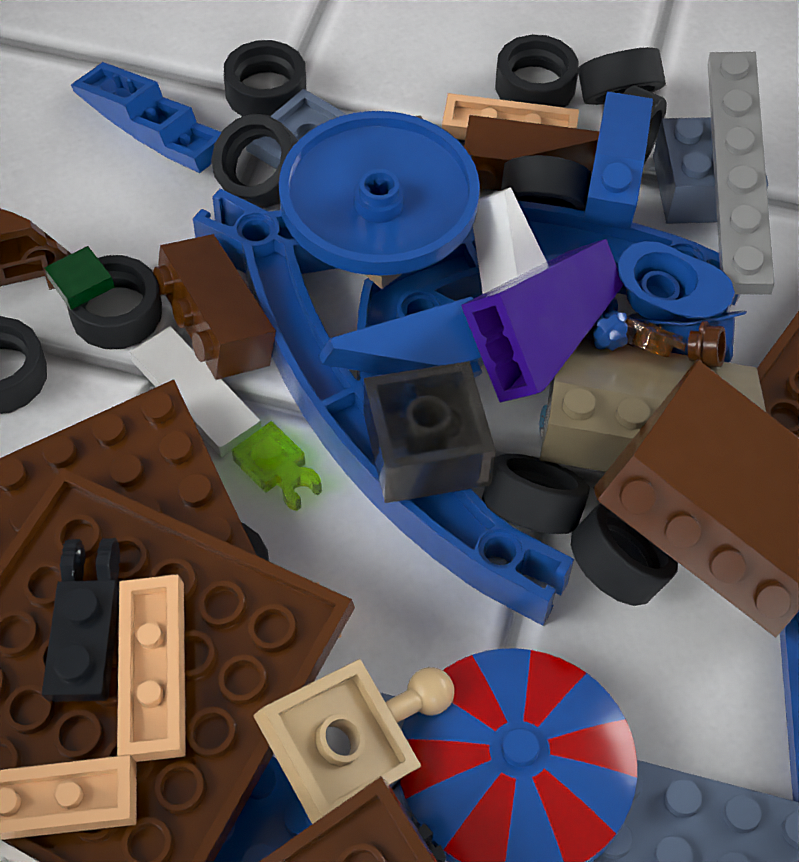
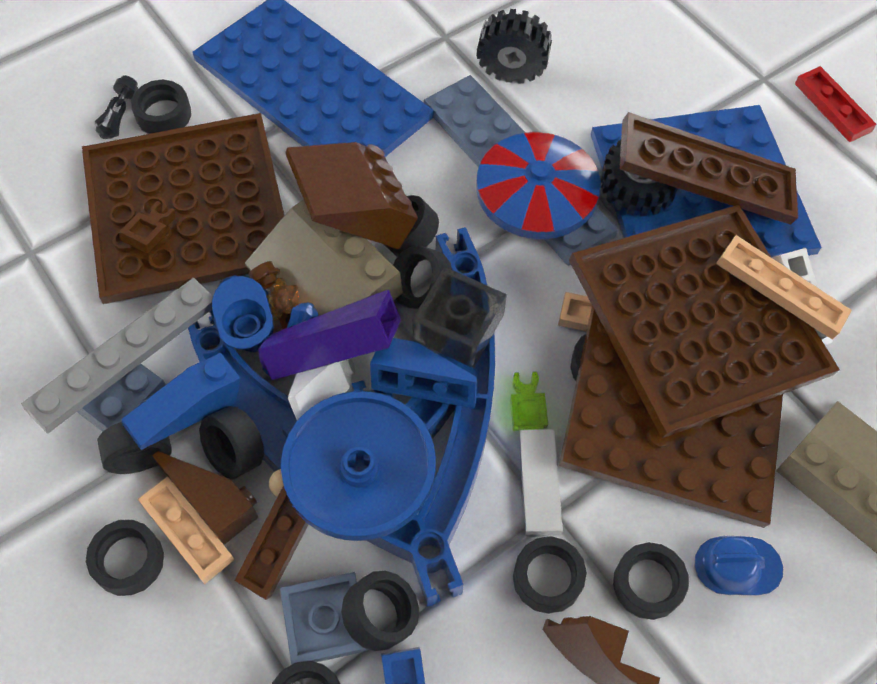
camera: 140 degrees left, 5 degrees up
(79, 277) = (568, 587): dark green tile -> none
(83, 626) = (706, 336): black hinge -> none
(151, 669) = (686, 289): light nougat plate -> none
(214, 306) = (495, 516): reddish brown brick -> none
(349, 701) = (603, 212): tan plate -> none
(620, 71) = (102, 477): black tyre -> none

